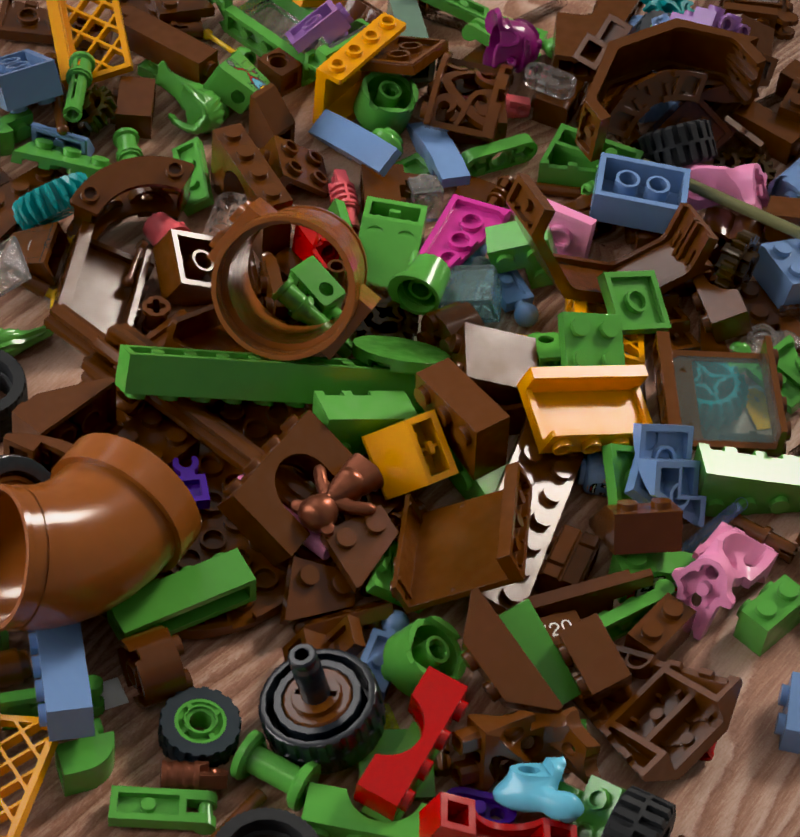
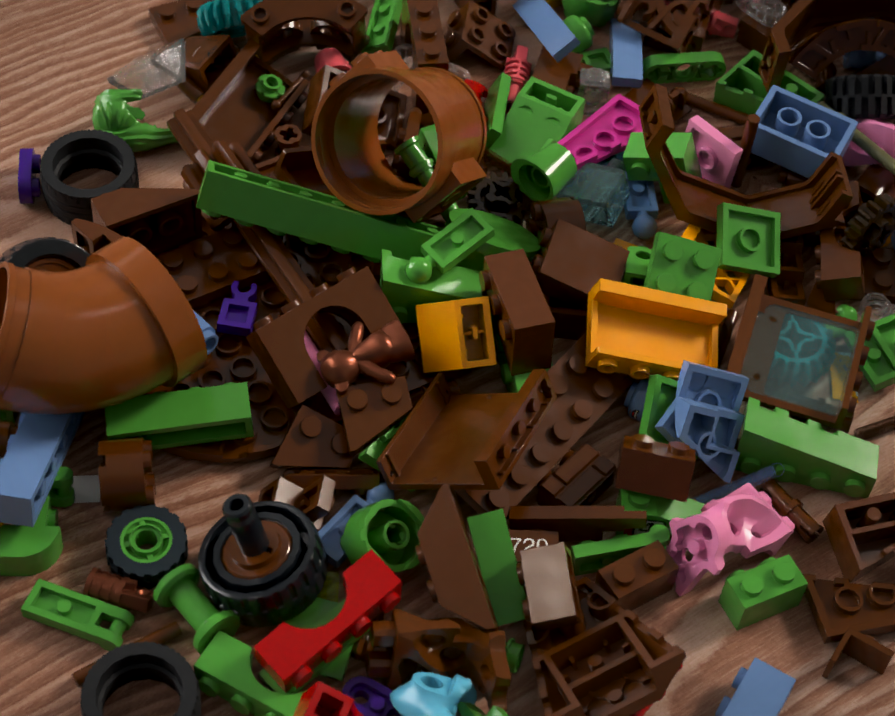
camera: 20 degrees right, 5 degrees up
(115, 265) = (269, 87): none -> bright green plate
(377, 372) = (450, 246): none -> bright green plate
(597, 213) = (746, 144): none -> reddish brown bar

